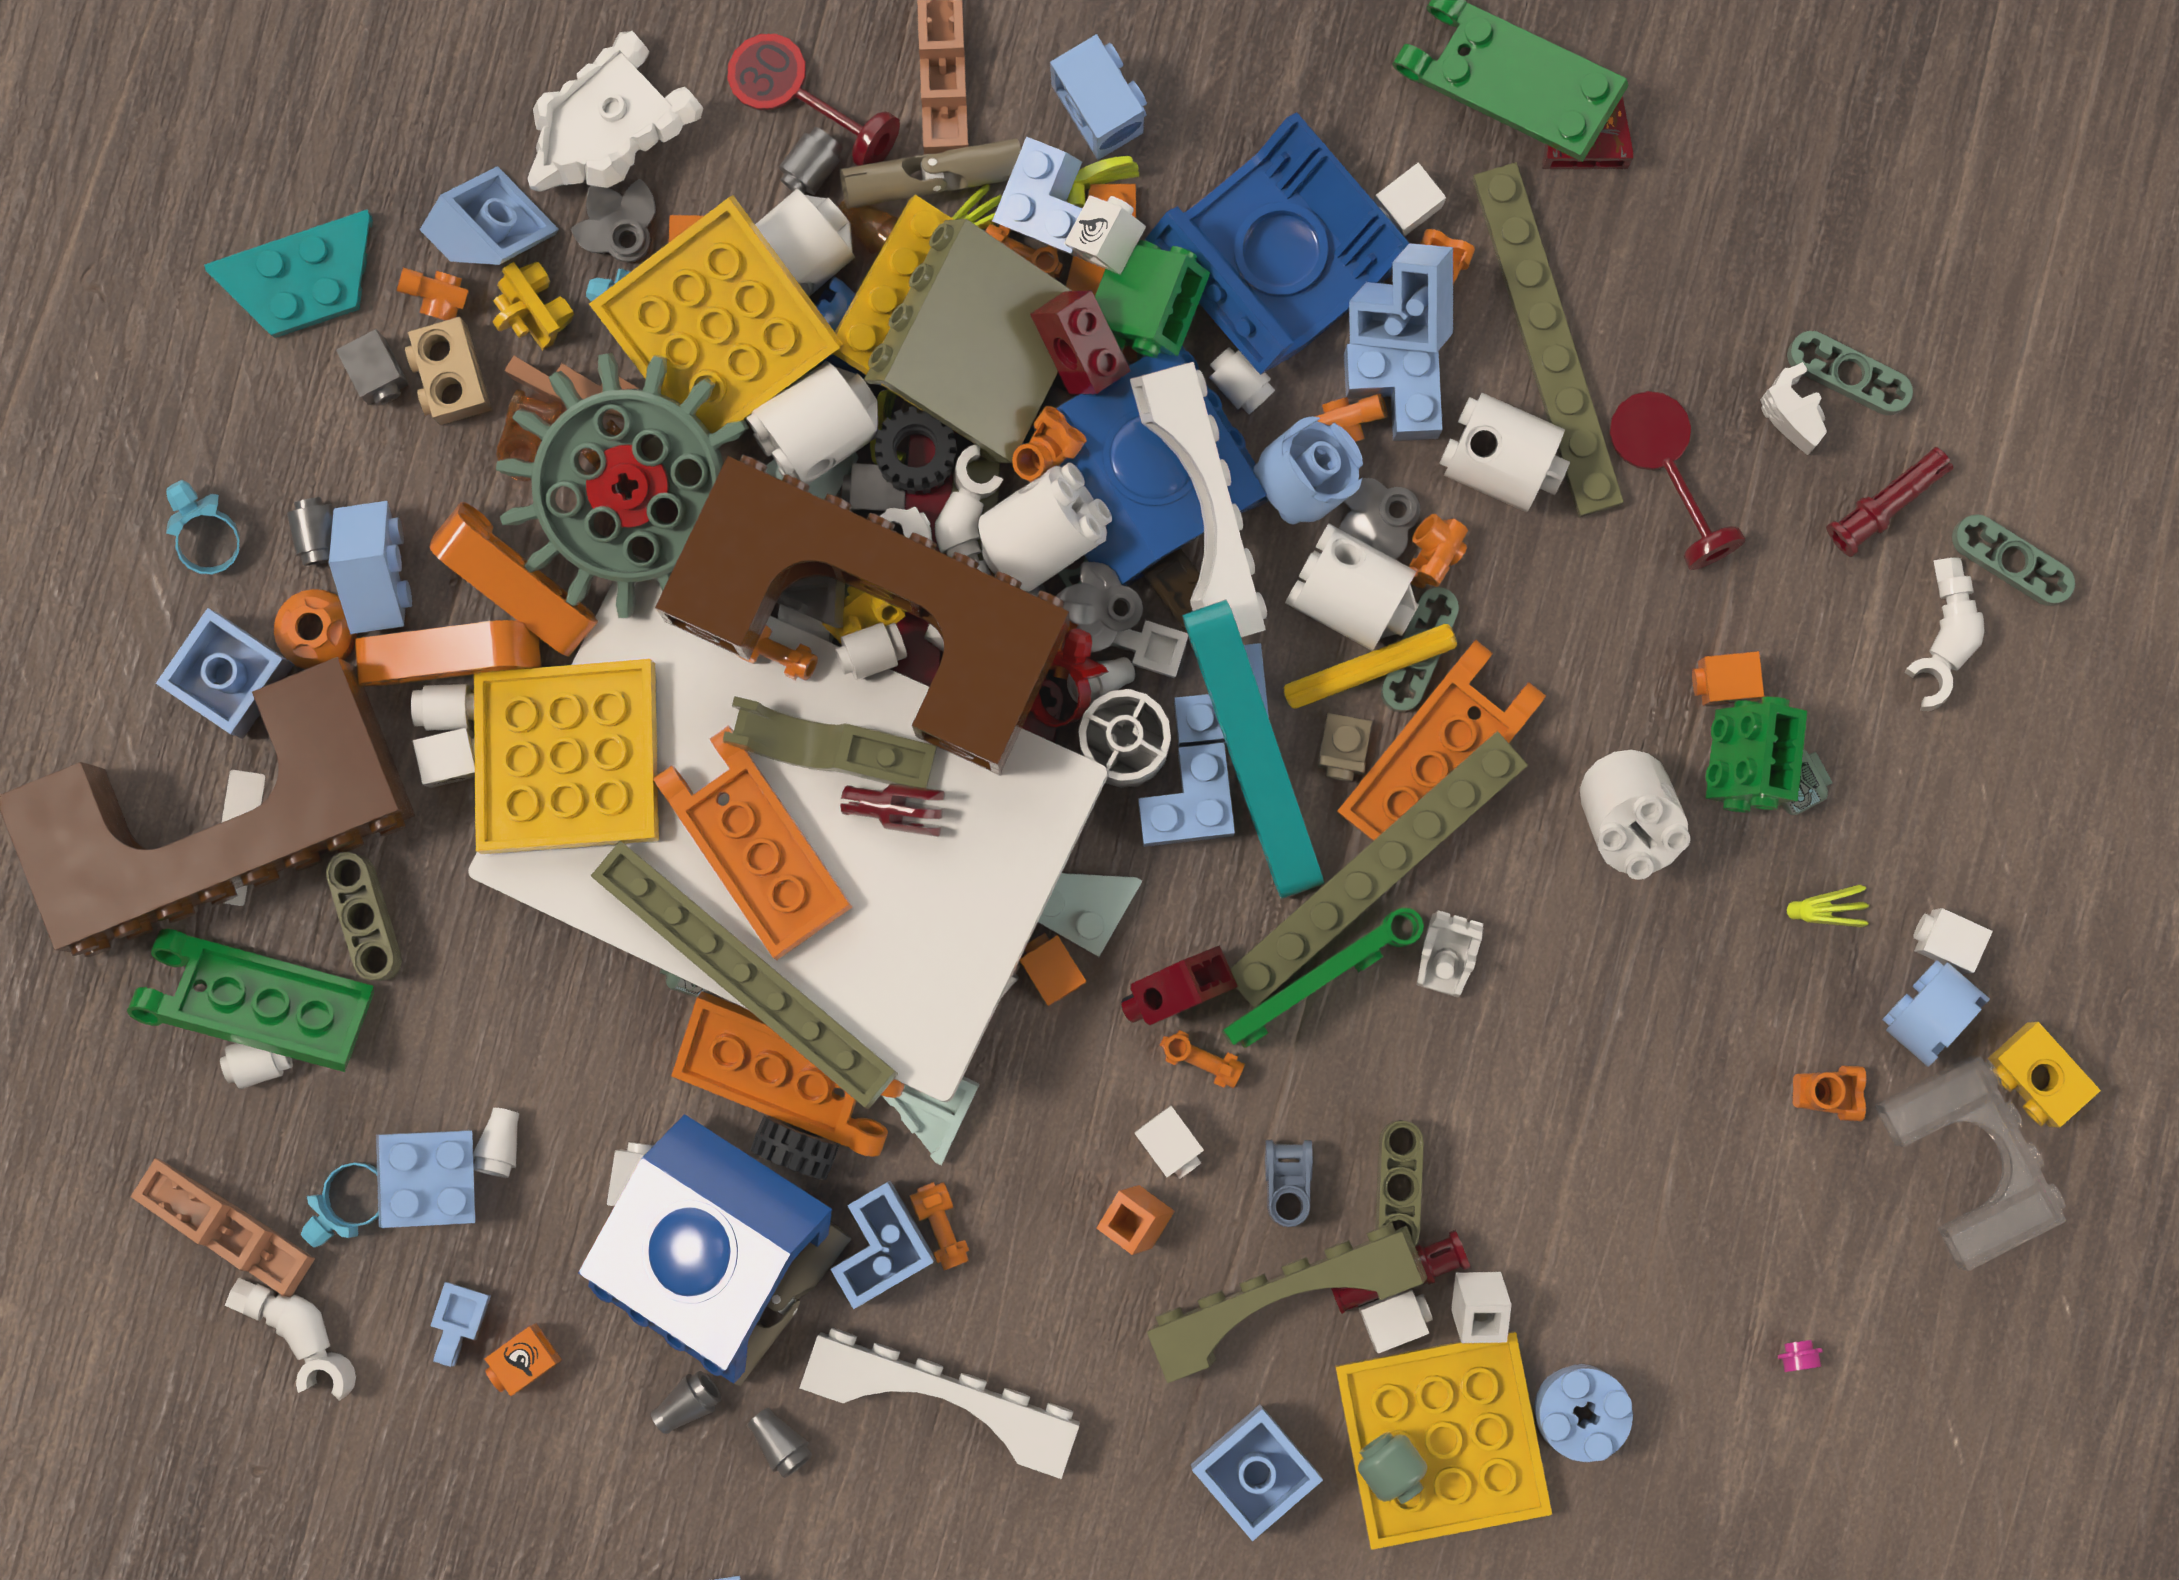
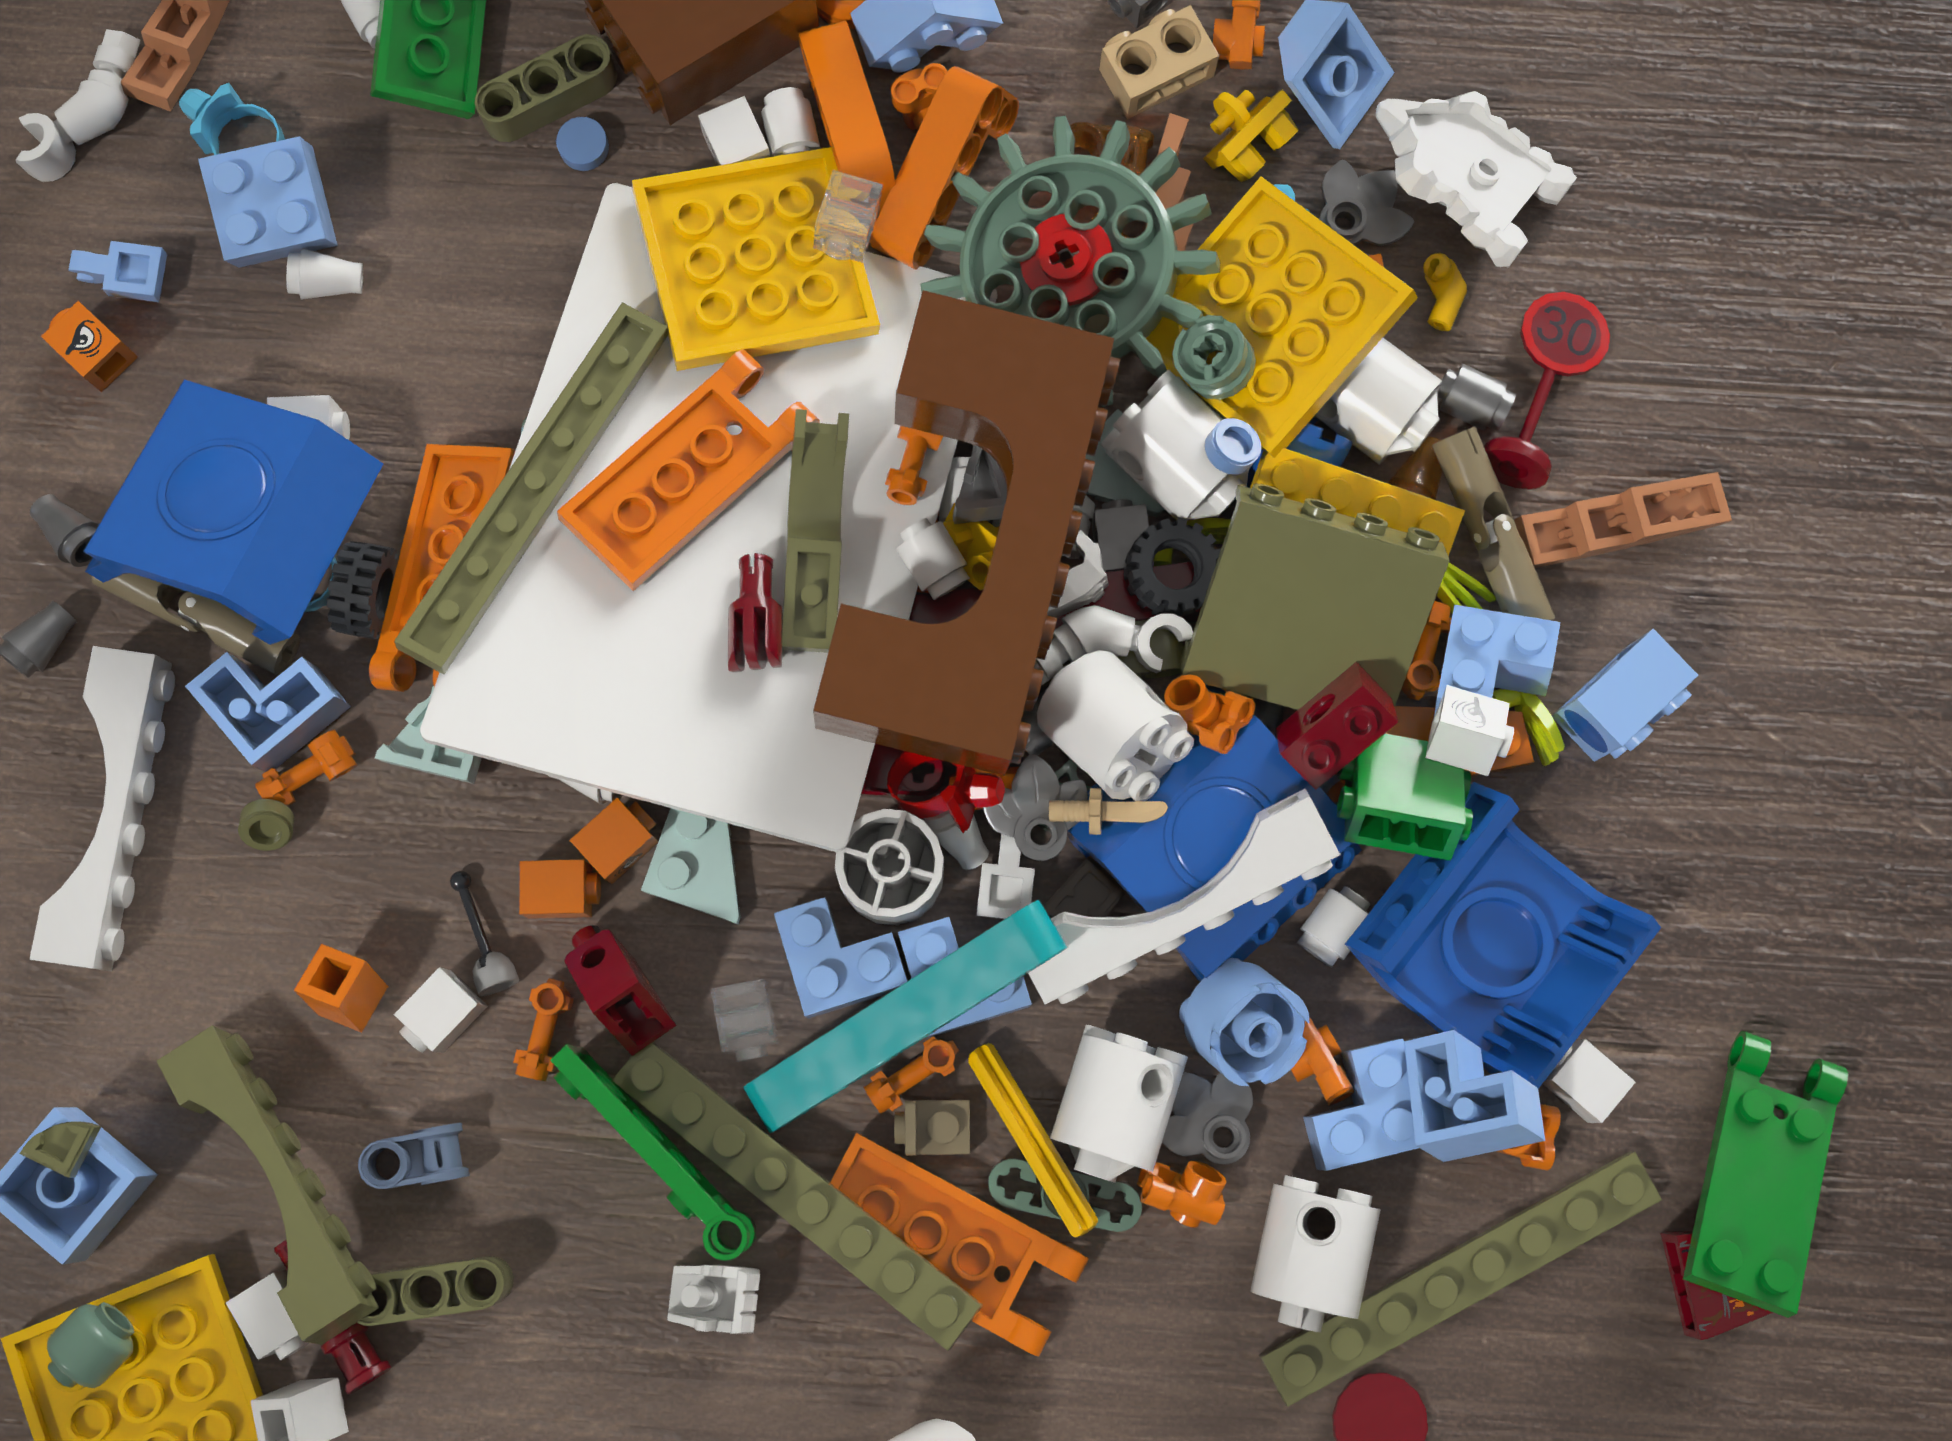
camera: 70 degrees right, 5 degrees down
(419, 895) = (582, 143): none -> medium blue tile
(440, 586) = (914, 92): none -> orange plate
(550, 668) = (847, 216): none -> clear brick
(706, 163) = (1447, 288): none -> yellow arm
(760, 366) = (1229, 368): none -> sand green wheel
(828, 377) = (1232, 446): none -> medium blue tile
(981, 1266) = (266, 824): none -> olive tile
(1085, 1024) = (558, 889): none -> orange brick
(1112, 555) = (1096, 811): none -> tan piece
(1141, 1093) = (493, 970): none -> hinge
(1225, 886) = (745, 1019): none -> clear brick
(1226, 1464) = (62, 1146): none -> olive tile
(1287, 733) = (936, 1057): none -> orange bar

